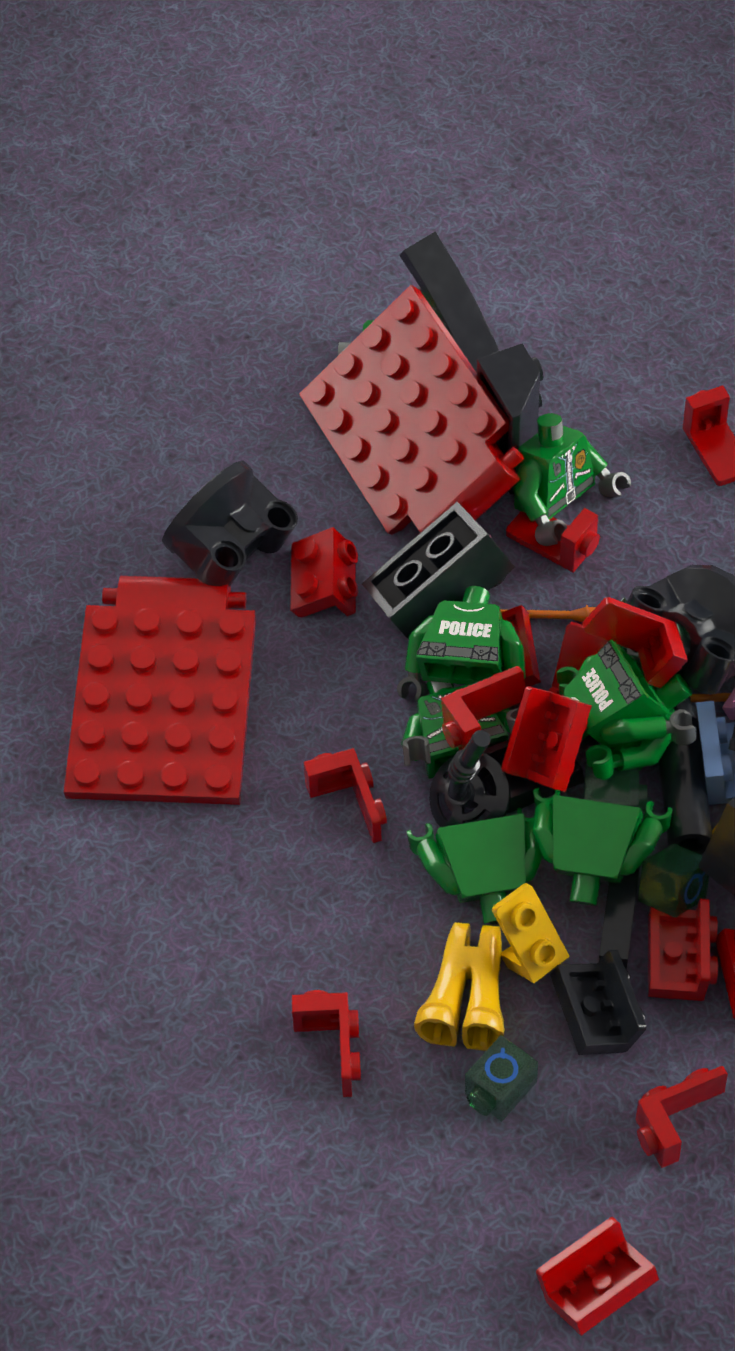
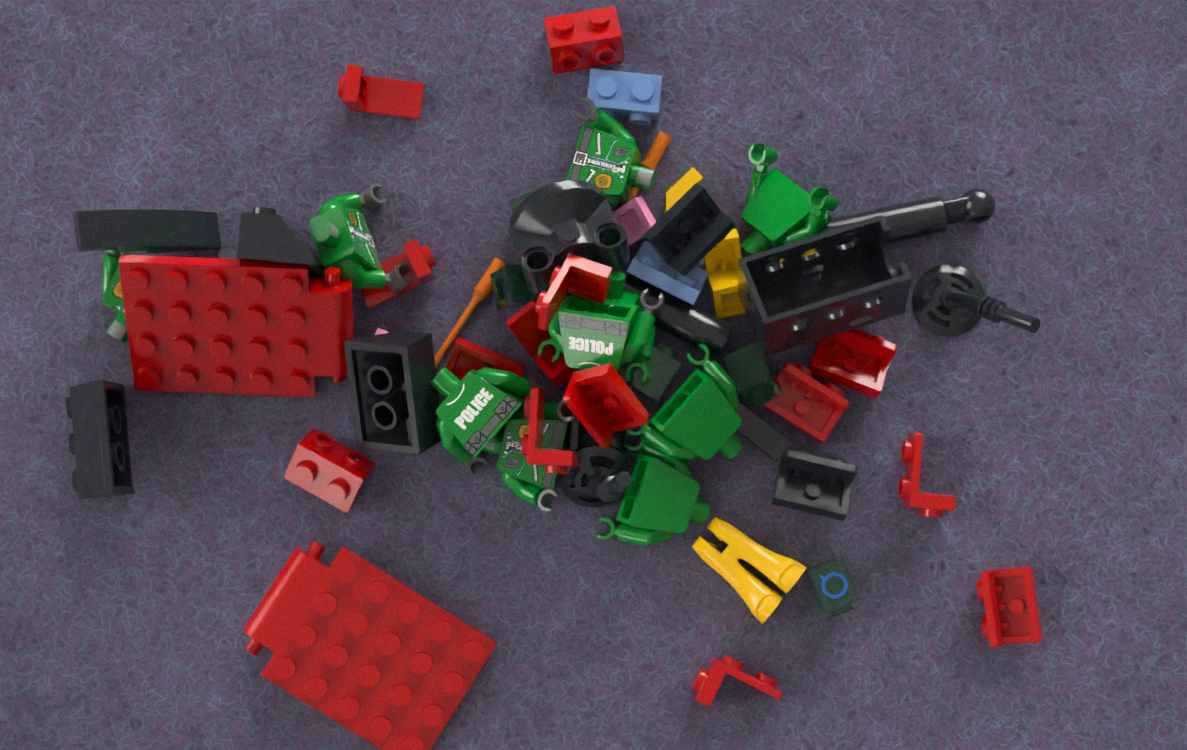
camera: 65 degrees left, 30 degrees up
(228, 524) = (252, 527): black piece -> none
(236, 385) = (99, 439): none -> black slope
(343, 770) = (514, 564): red bracket -> none
(531, 935) = (750, 507): yellow bracket -> none

